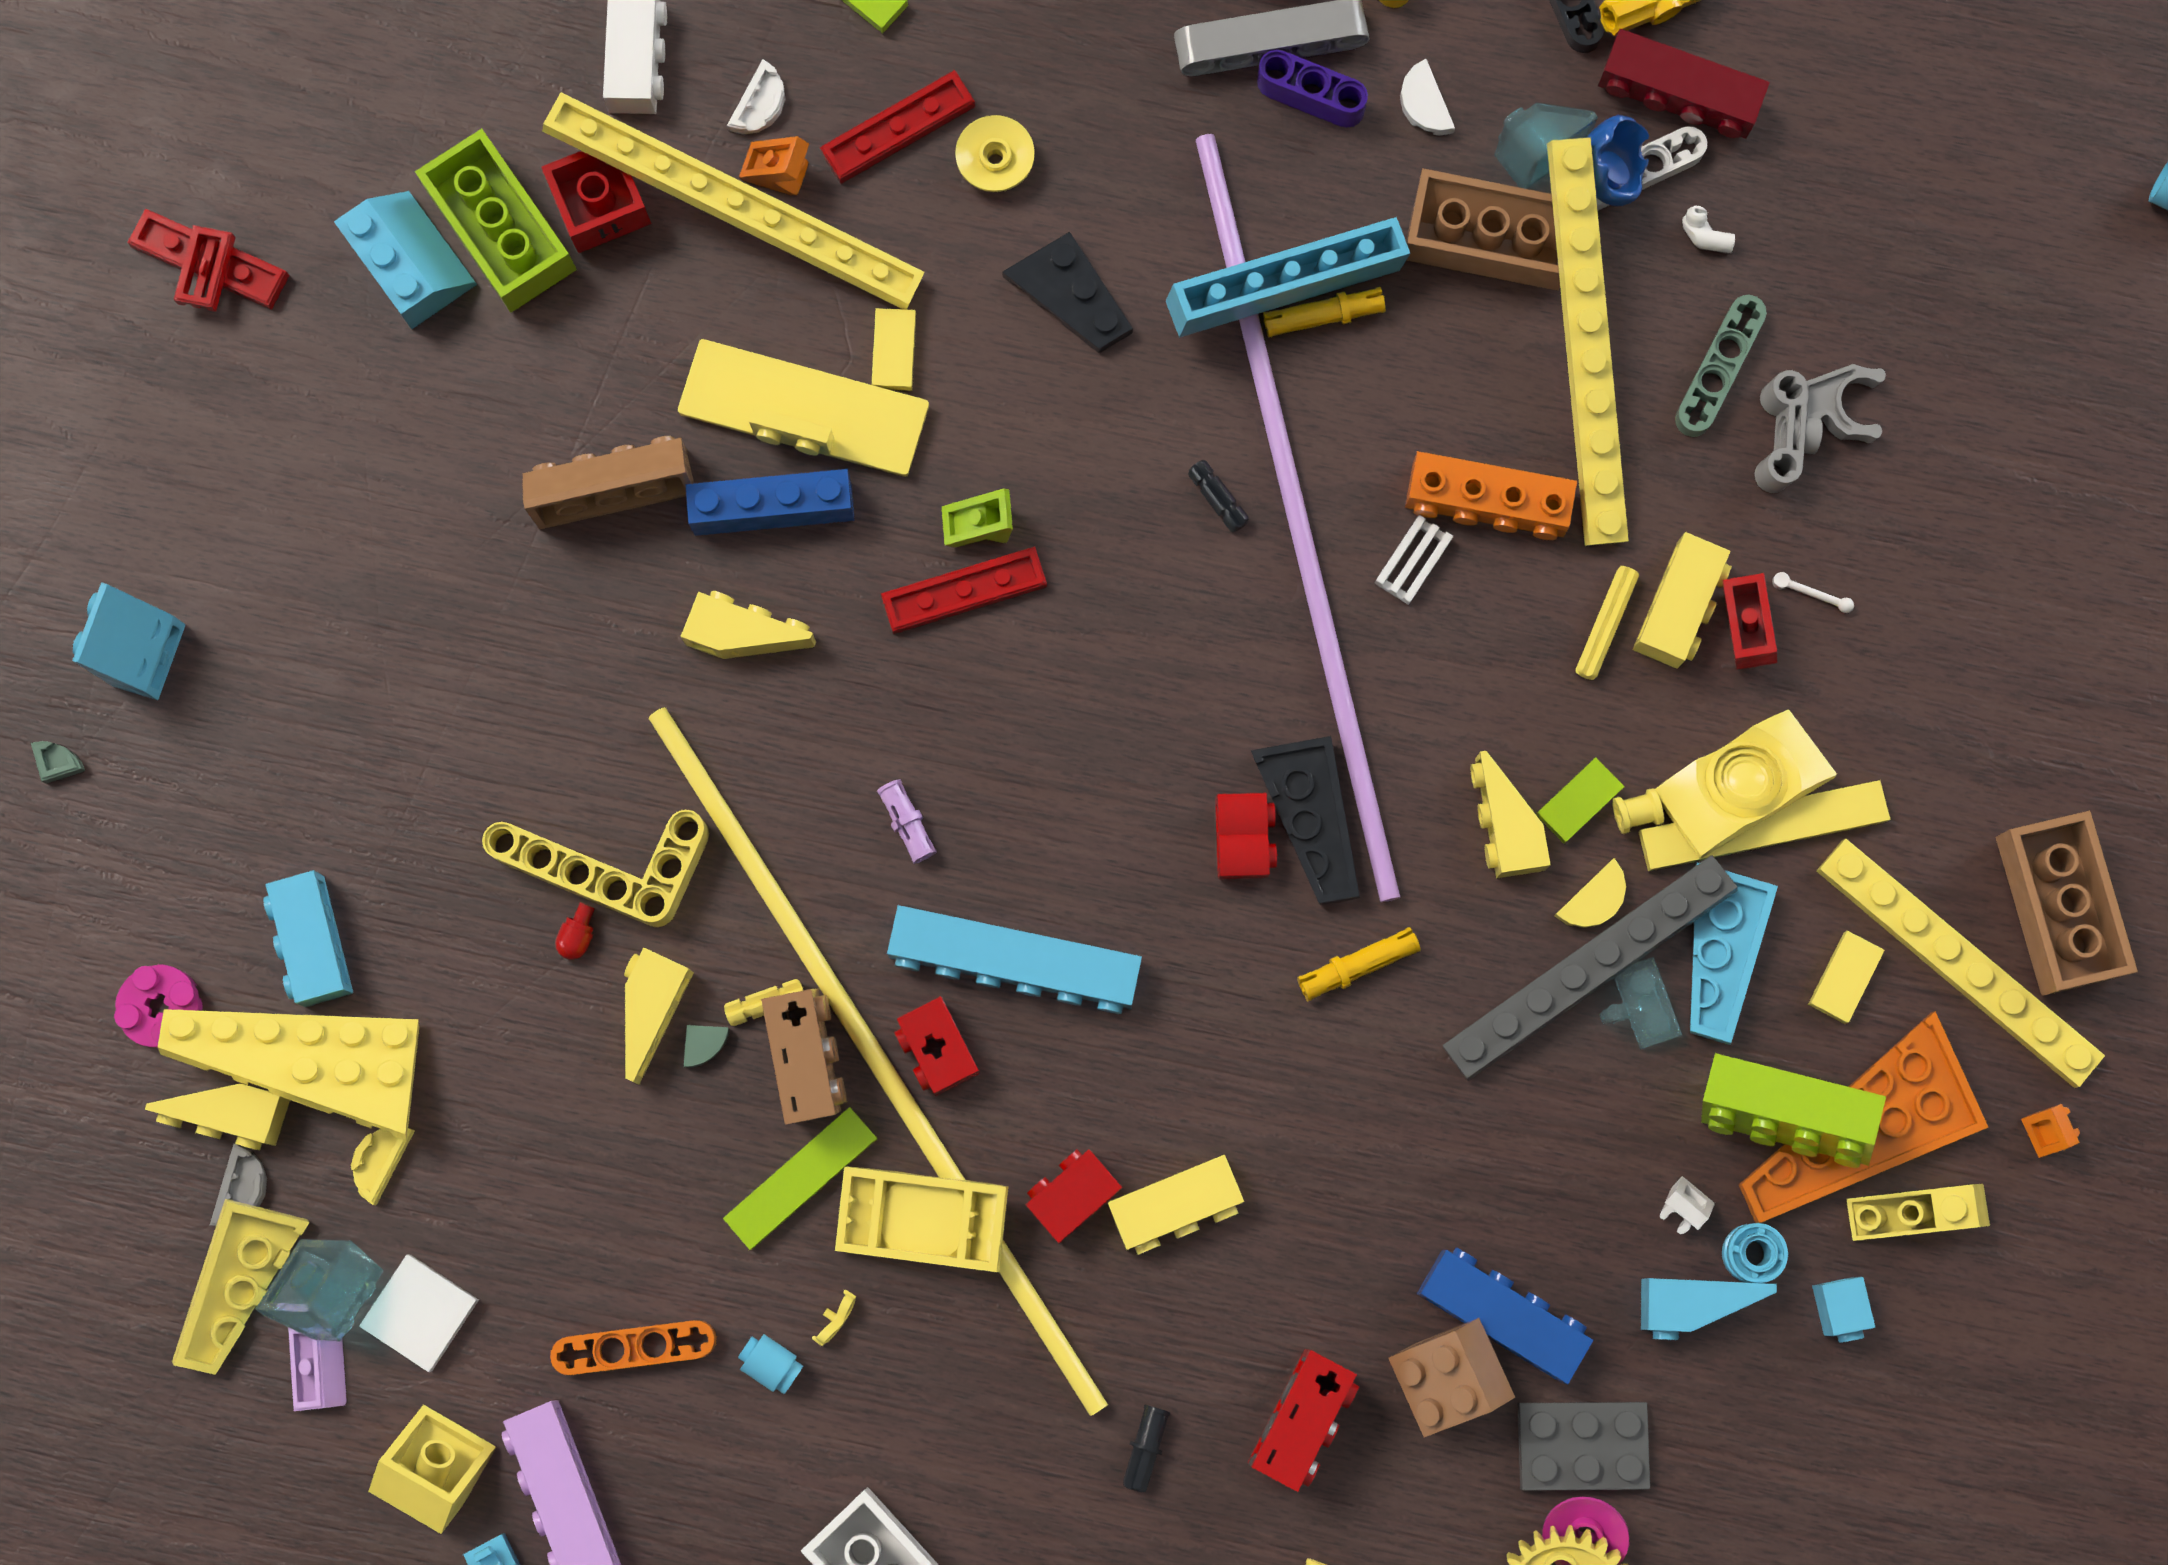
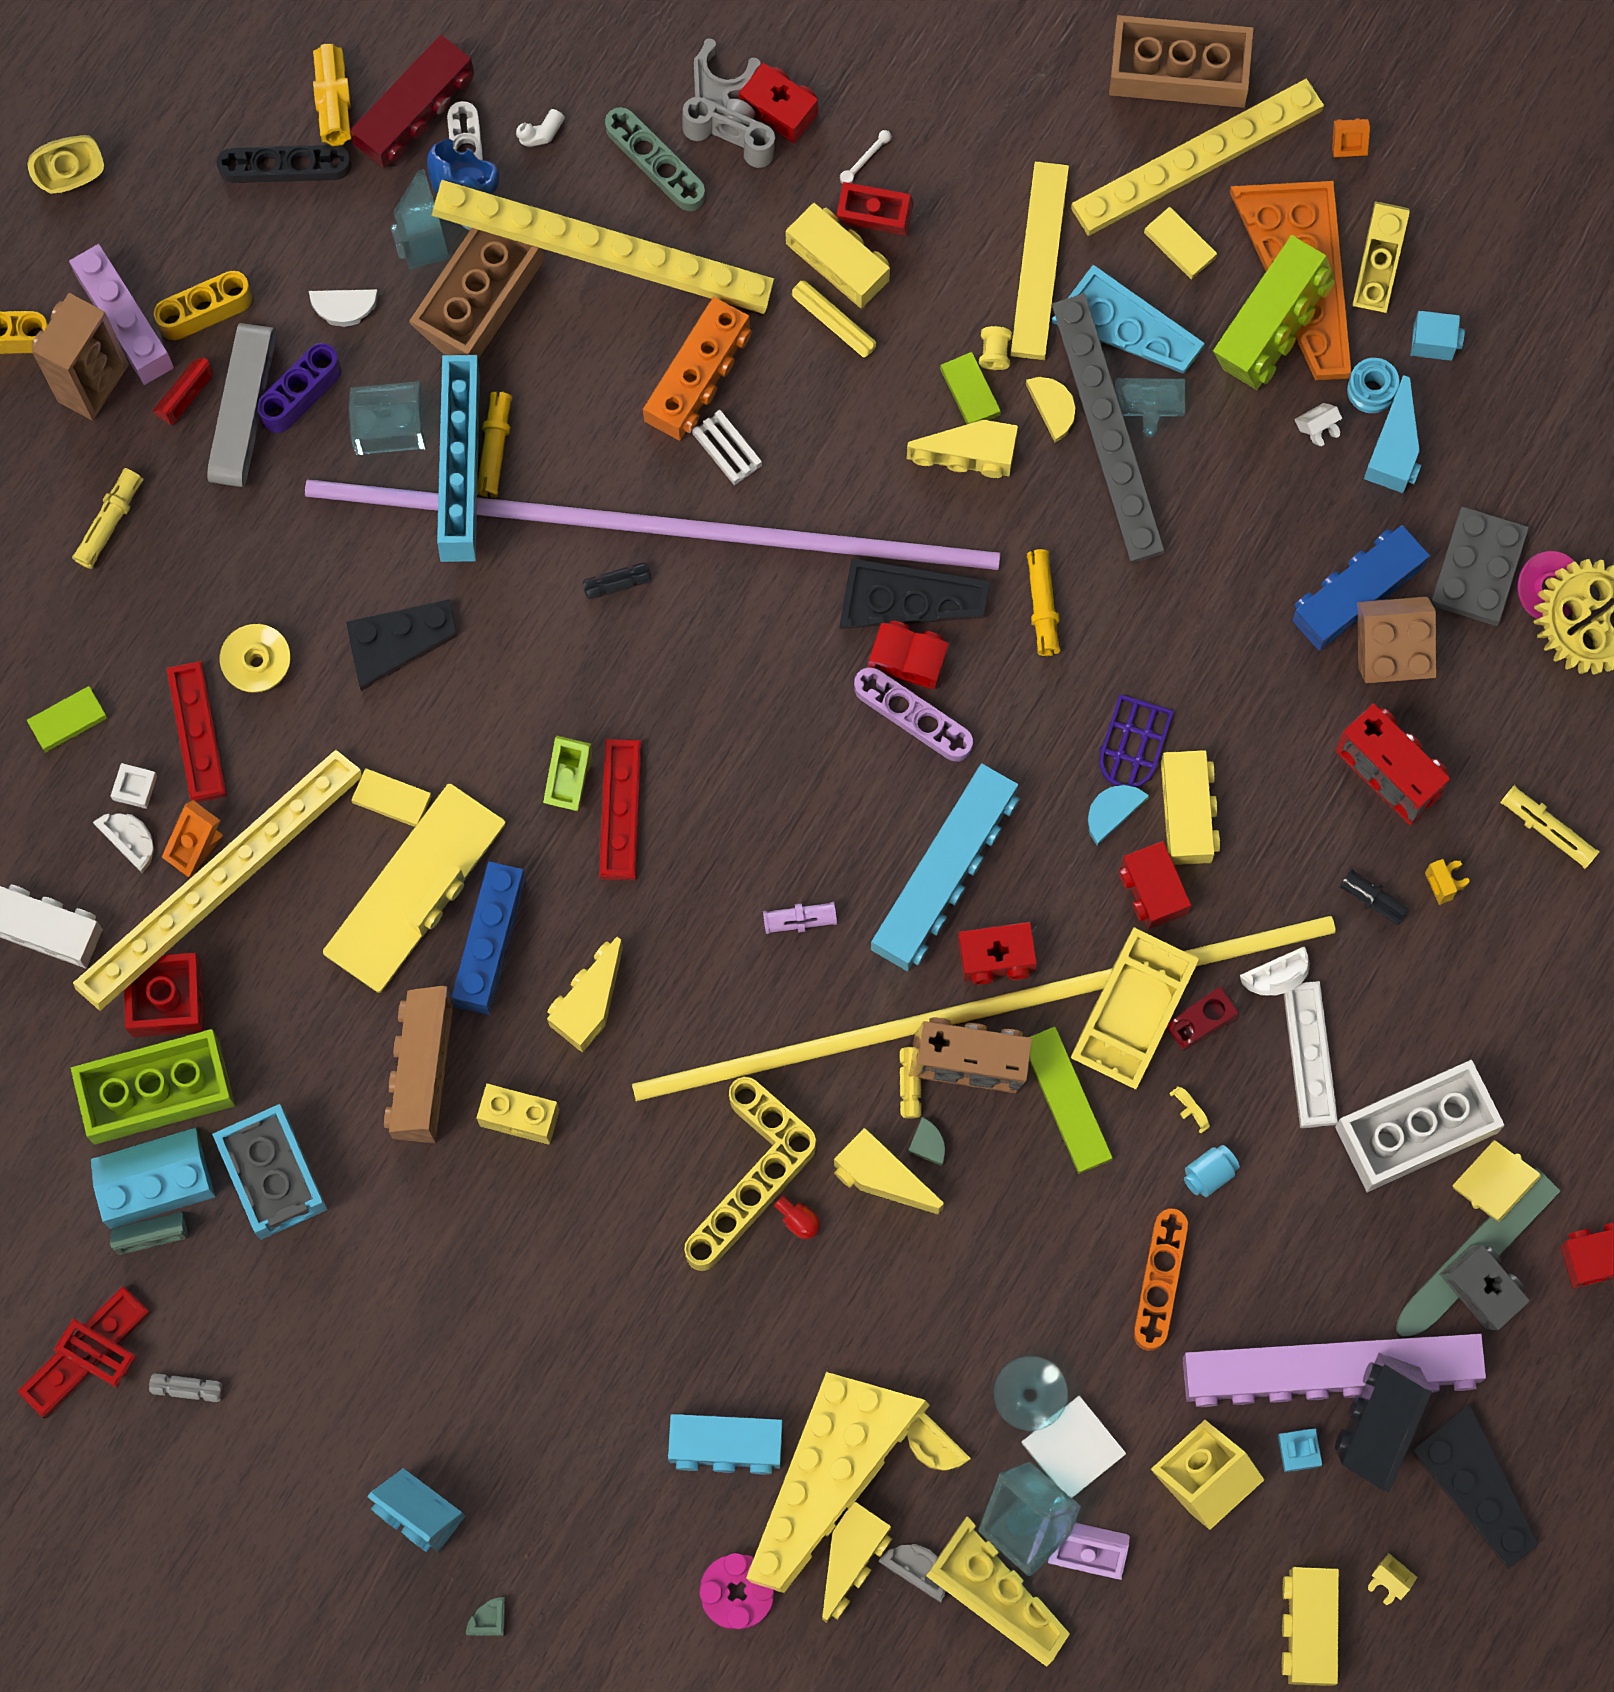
camera: 70 degrees left, 5 degrees down
(201, 371) = (185, 1387): none -> light grey axle
(349, 275) = (148, 1233): none -> sand green slope
(439, 1241) = (1034, 1374): none -> clear light blue dish
(444, 369) = (269, 1172): none -> dark grey piece
(589, 600) = (518, 1114): none -> light yellow brick
(811, 83) = (134, 785): none -> white tile
(938, 1300) = (1203, 1019): none -> dark red leg
(941, 1432) = (1310, 1056): none -> white tile
(1019, 1369) = (1278, 975): none -> white tile
(1146, 1119) = (1112, 809): none -> medium azure tile
(1176, 864) = (917, 709): none -> lavender beam
(1189, 1521) = (1442, 882): none -> yellow tile
(1248, 1128) = (1145, 734): none -> dark purple window
(1313, 189) = (386, 418): none -> clear light blue slope
(1744, 782) = (1001, 261): light yellow slope -> none
(1825, 492) = (785, 117): none -> red brick

